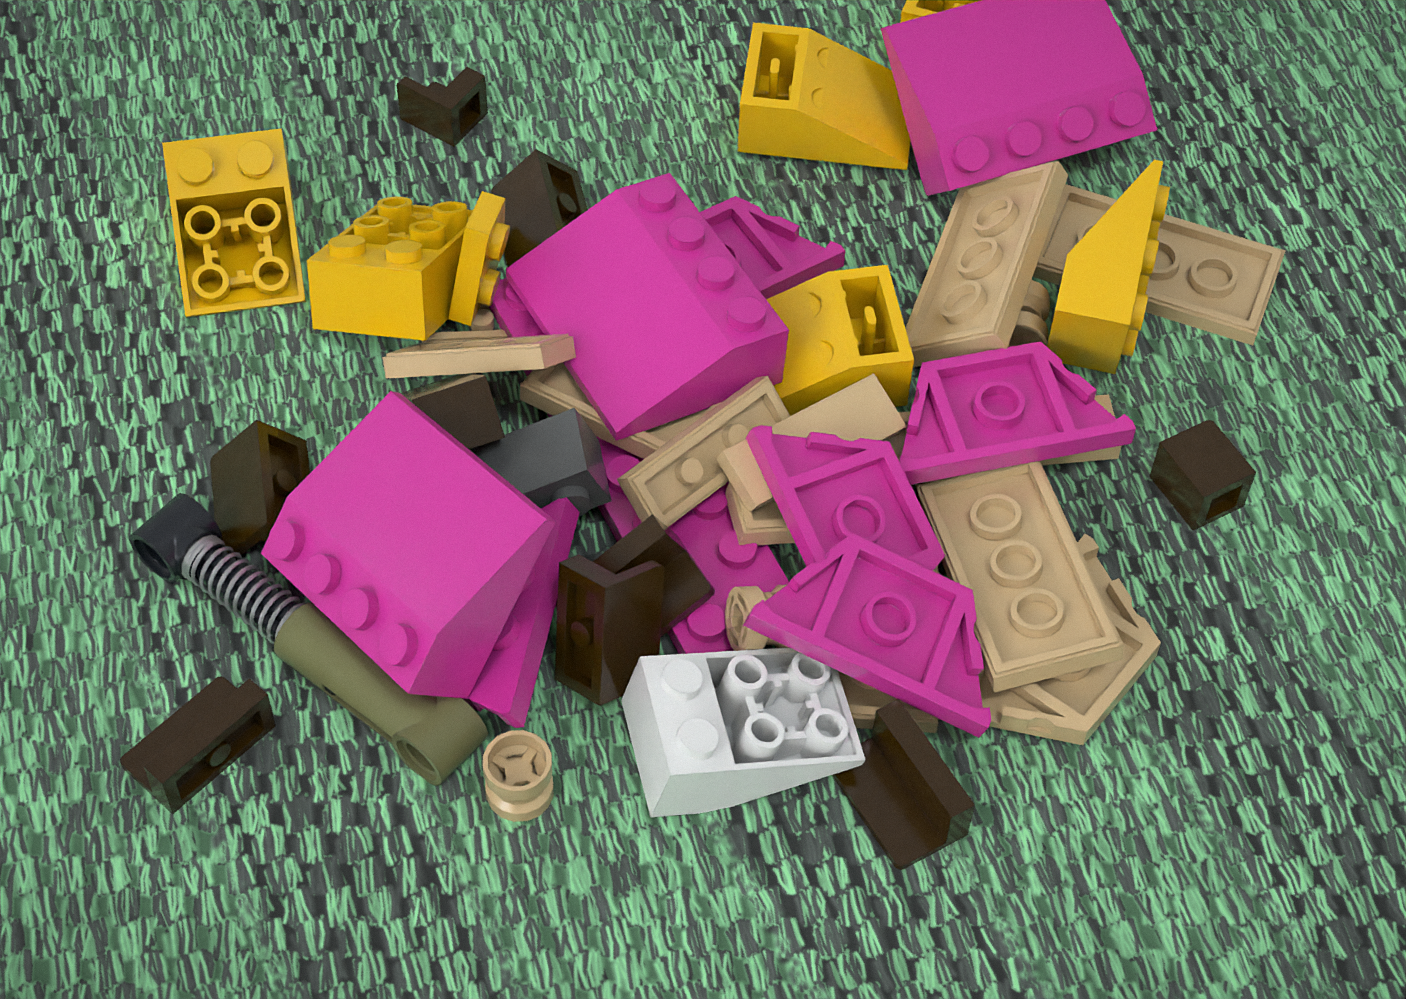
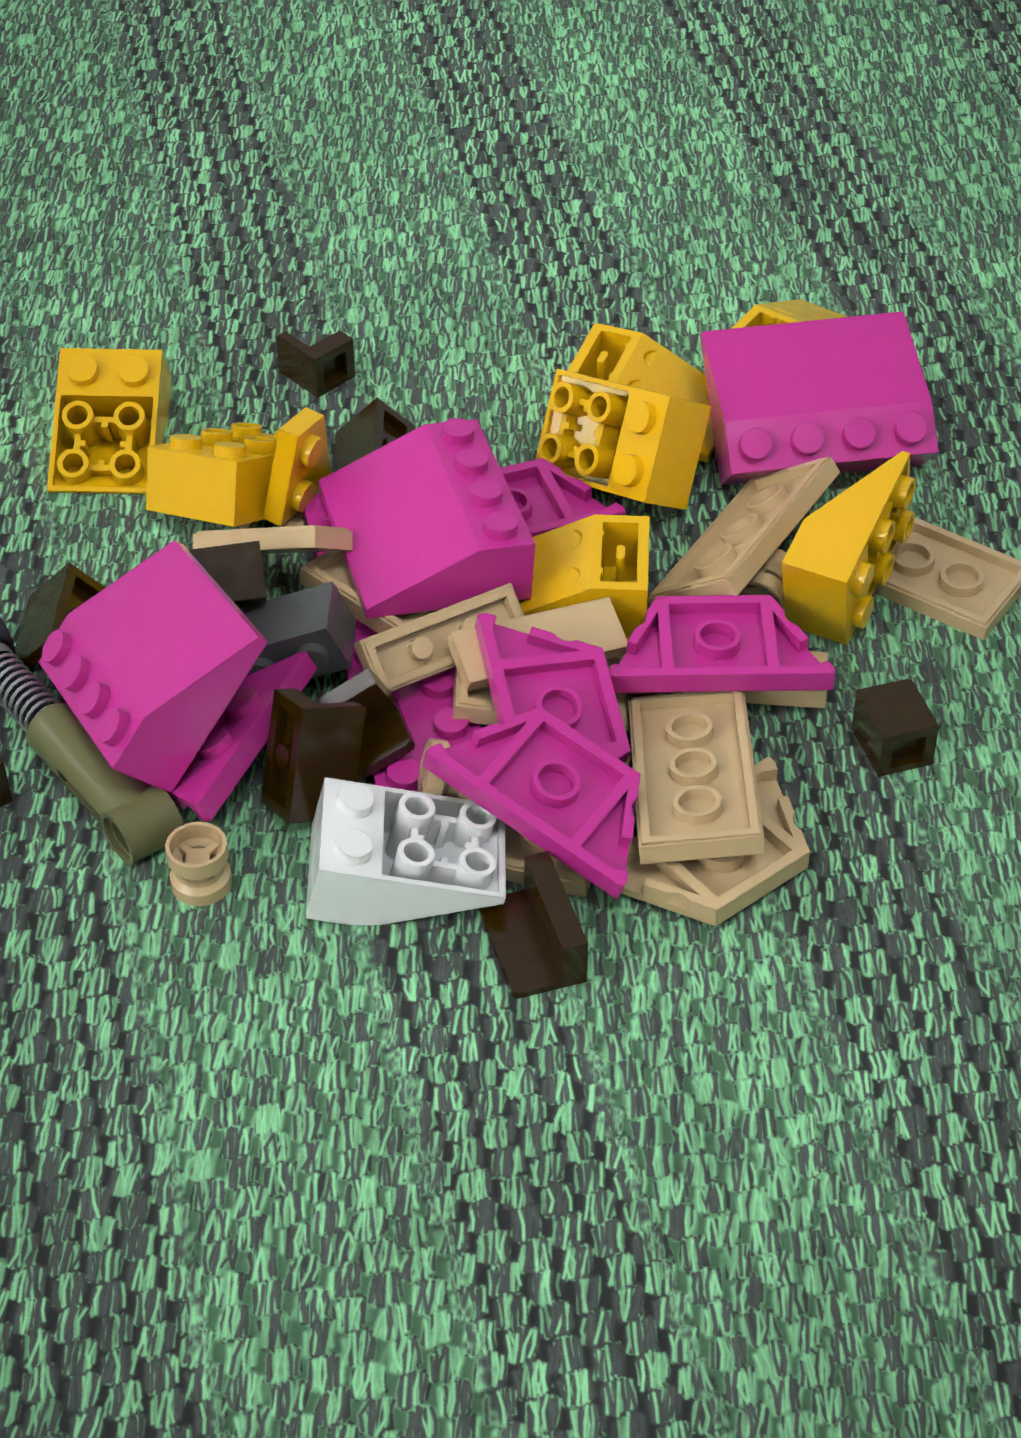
camera: 15 degrees right, 10 degrees down
(822, 164) = (624, 438): none -> yellow slope

